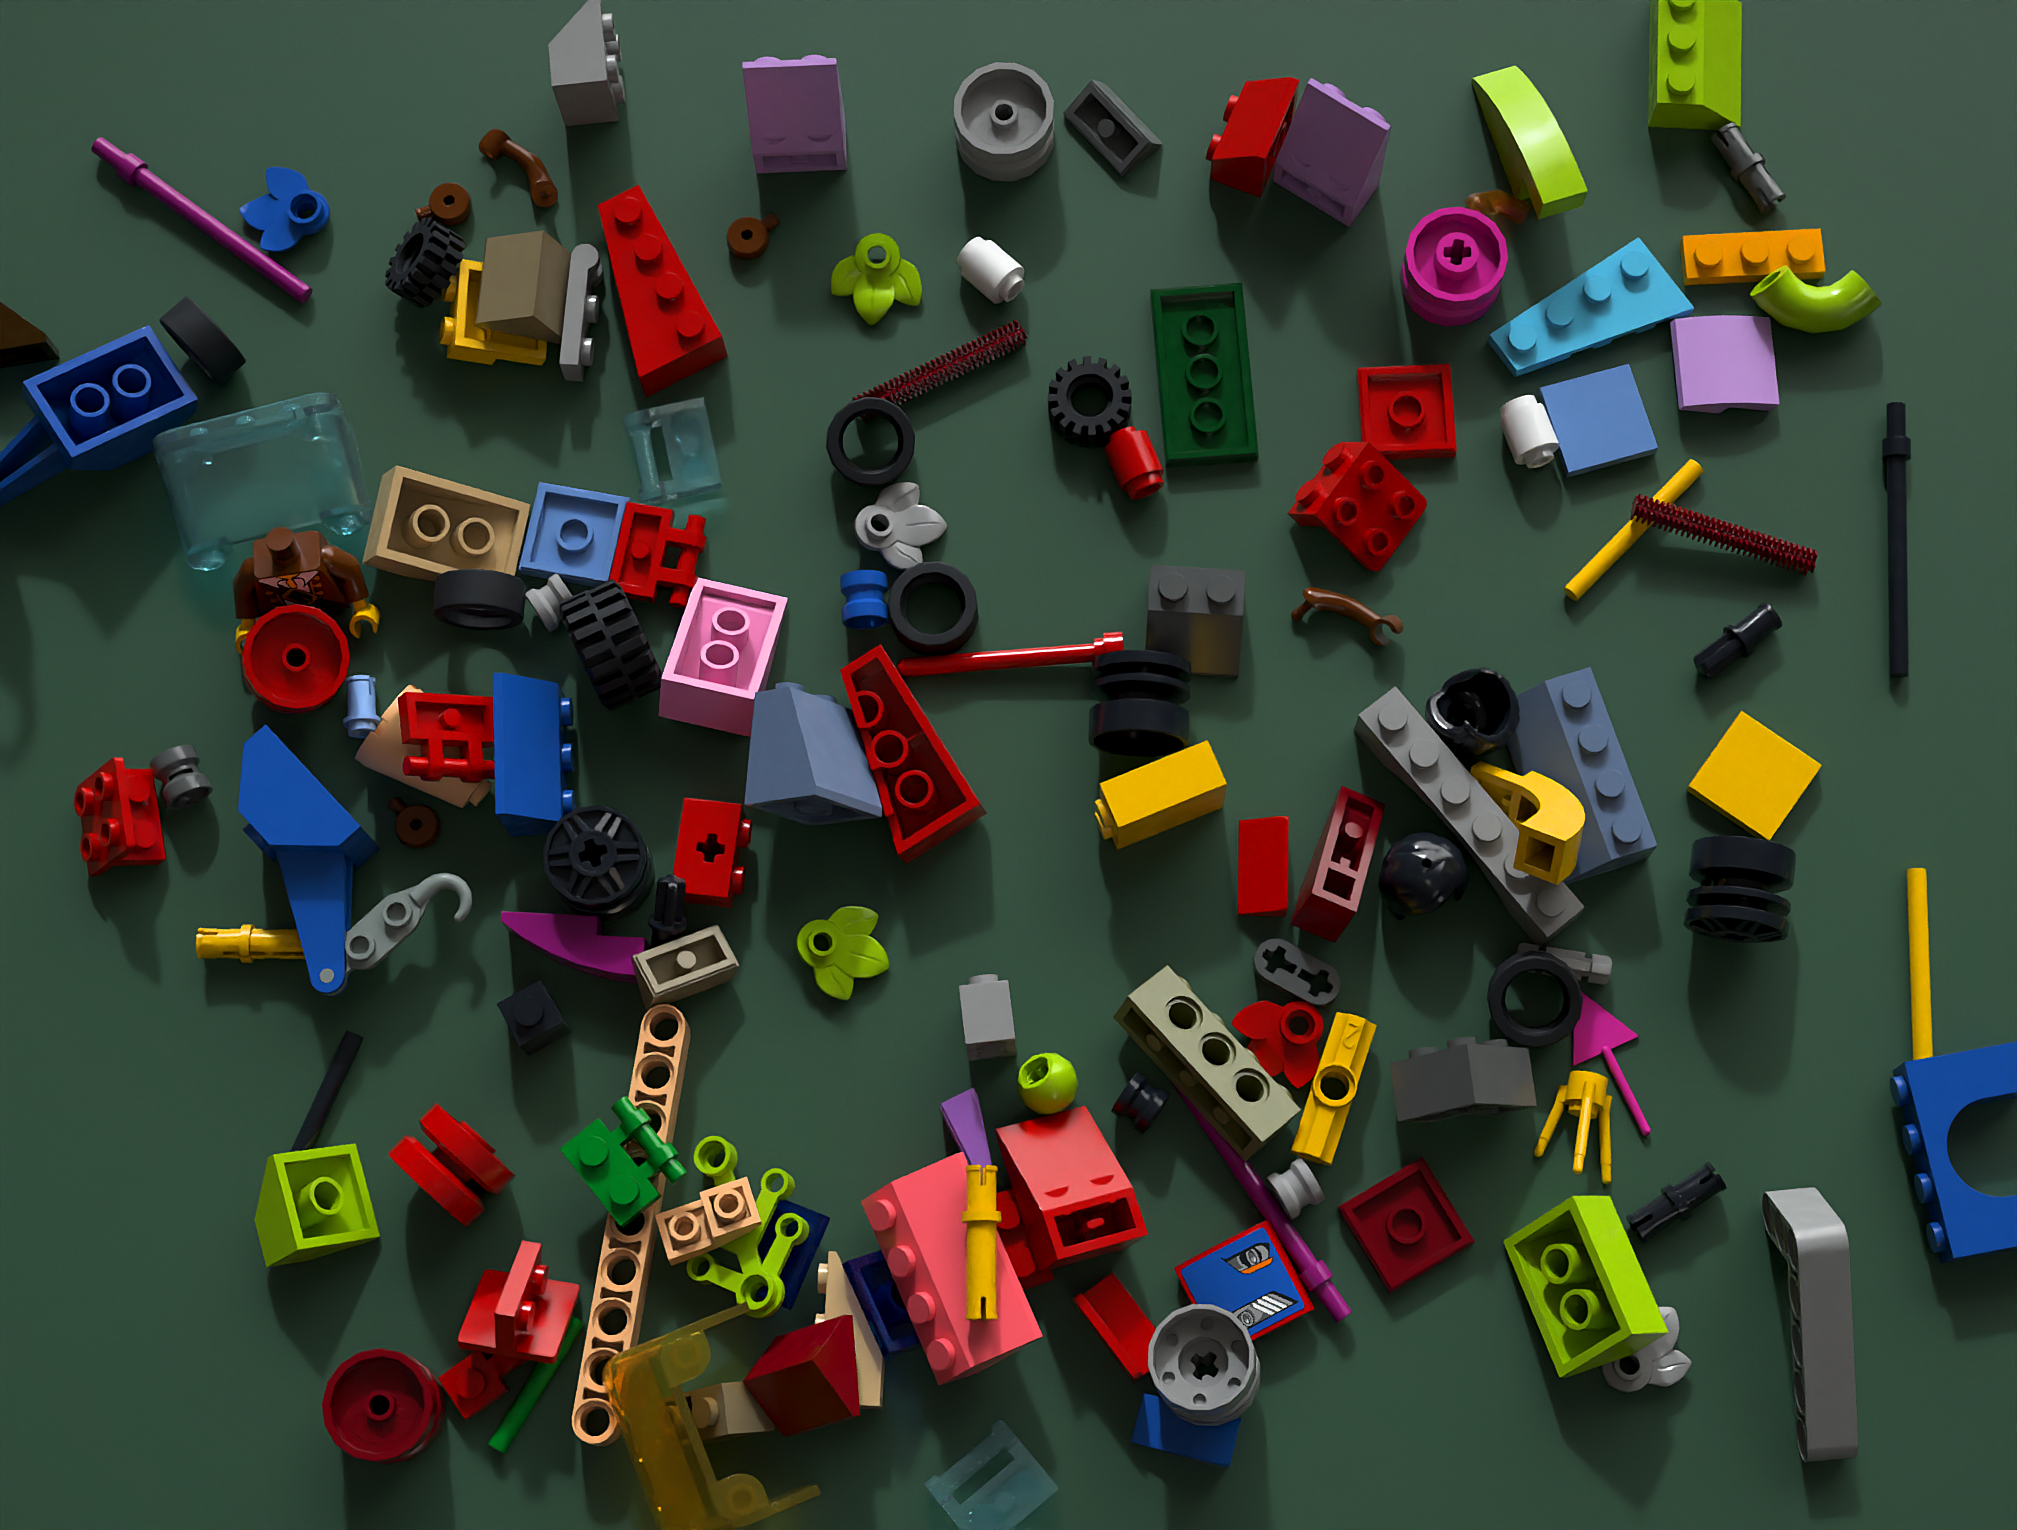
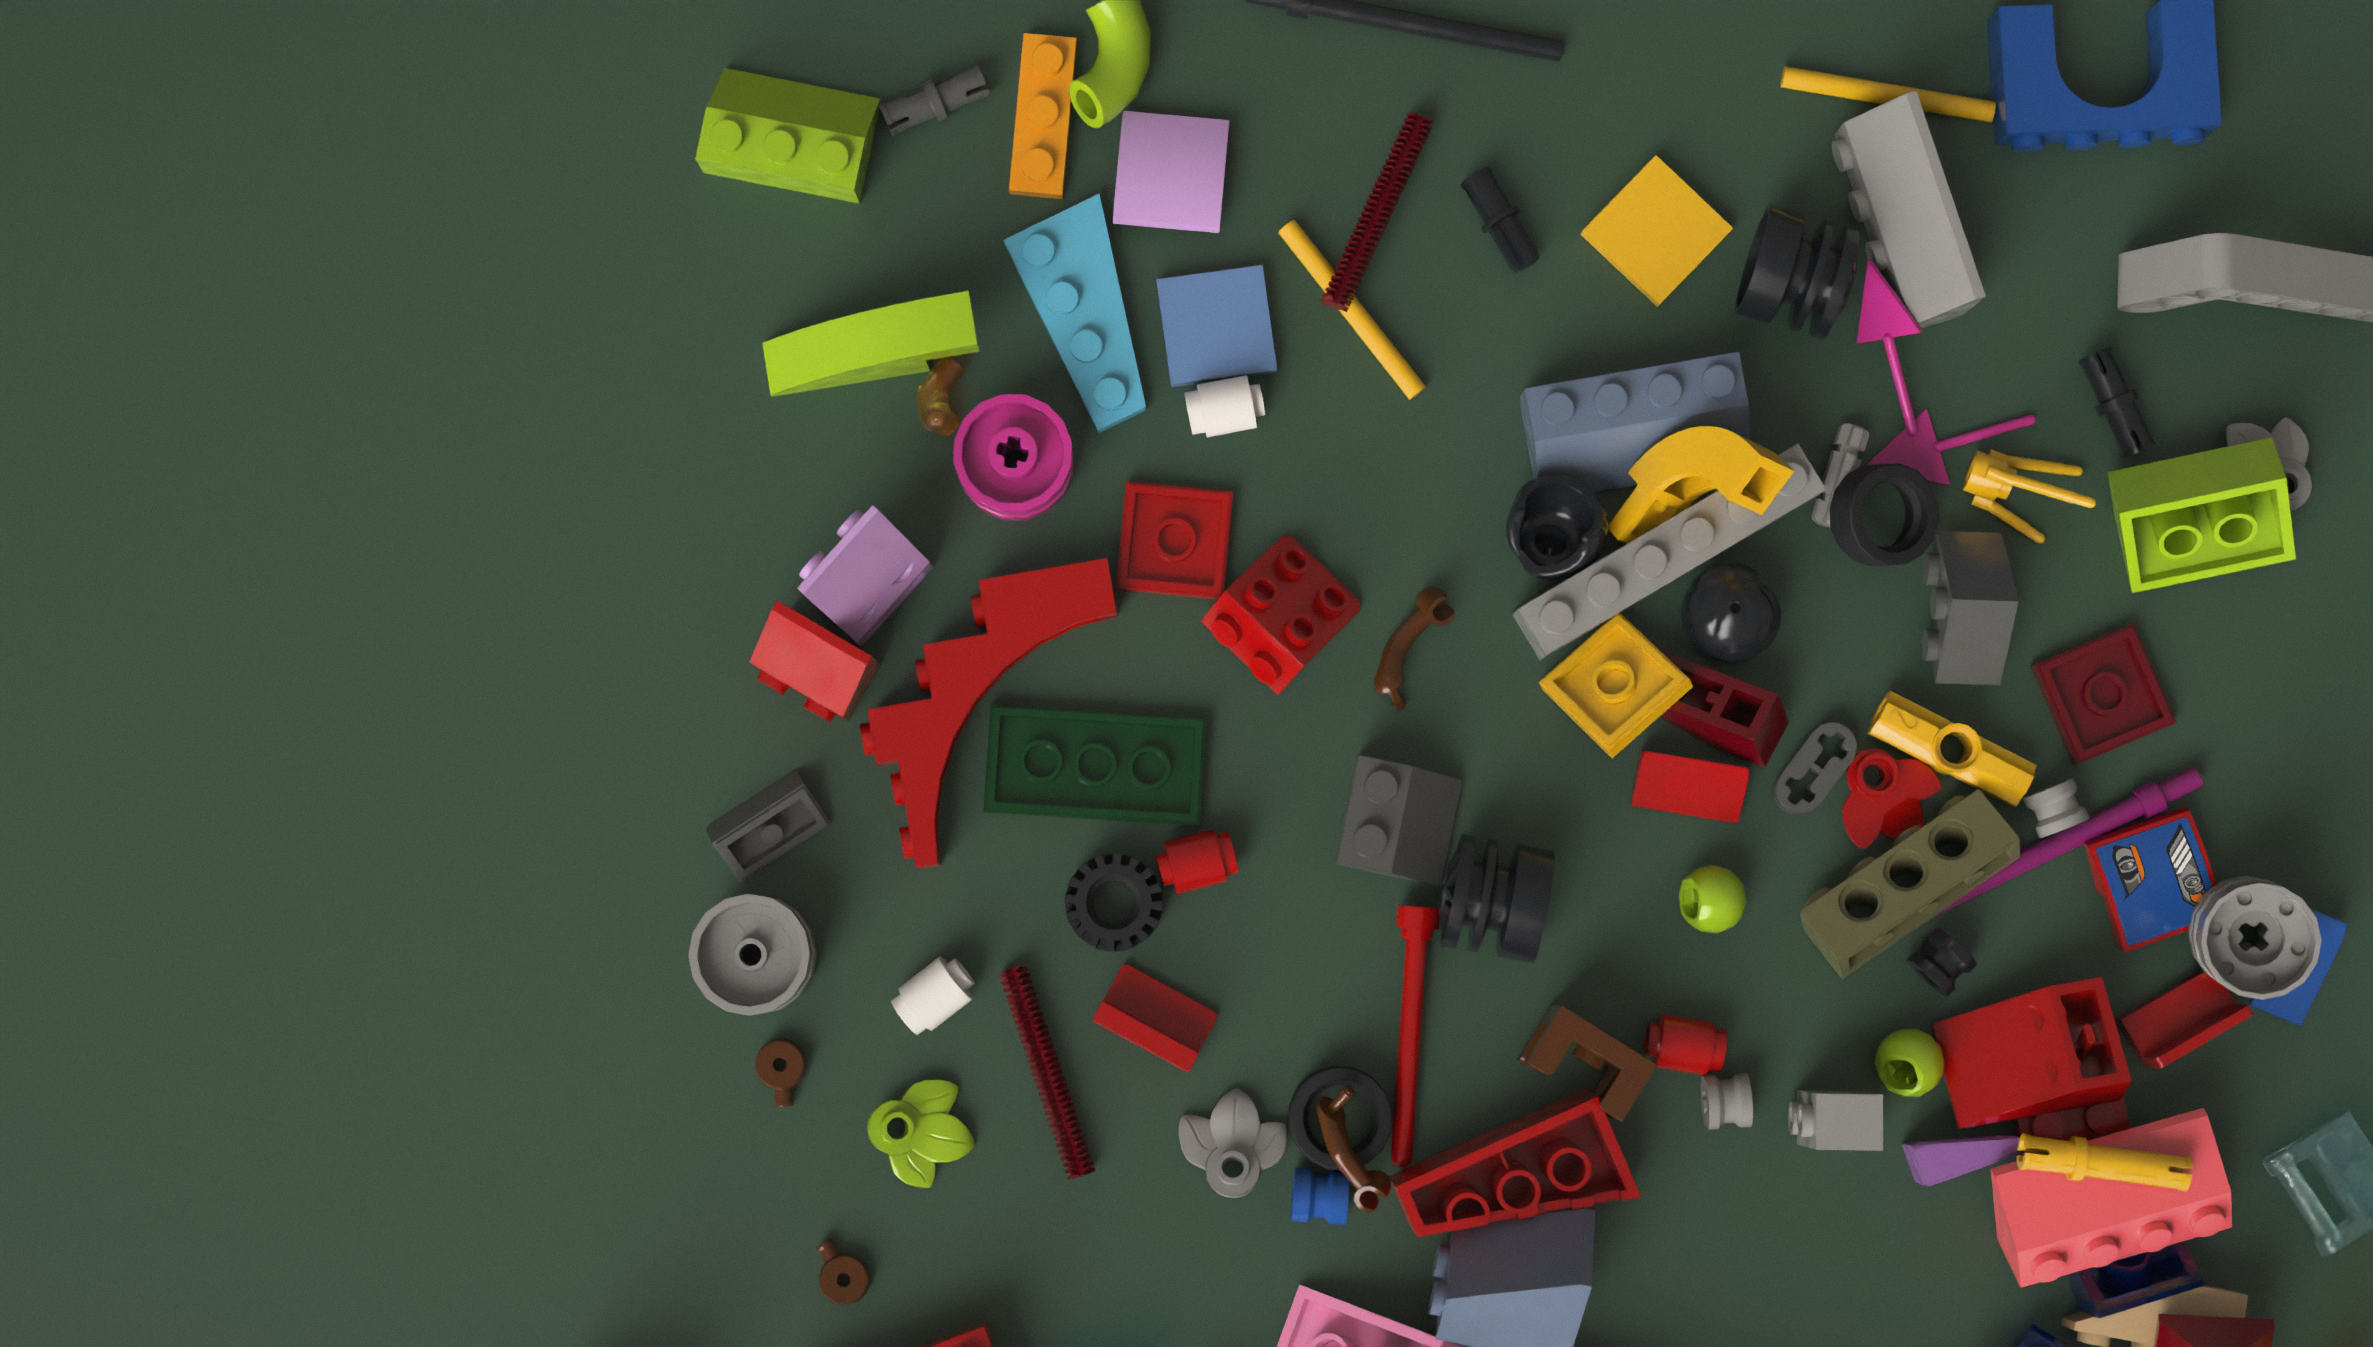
camera: 90 degrees left, 10 degrees up
(795, 114) = (717, 1205): lavender slope -> none
(849, 953) = (1724, 1263): lime plate -> none
(875, 631) = (1332, 1125): none -> reddish brown piece
(903, 429) = (1171, 1173): black tyre -> none
(904, 167) = (781, 1080): none -> reddish brown piece
(991, 929) = (1726, 1101): none -> light grey wheel
(995, 450) = (1155, 1017): none -> red panel
(1032, 774) = (1626, 1068): none -> reddish brown panel
(1036, 888) = (1685, 1044): none -> red brick
(1160, 795) = (1608, 892): yellow brick -> none
(1167, 894) = (1712, 899): none -> lime piece
(1261, 251) = (921, 735): none -> red arch
(1342, 786) = (1615, 684): none -> yellow tile
(1709, 979) = (1884, 318): none -> dark pink piece
(1810, 984) = (1908, 210): none -> light grey slope

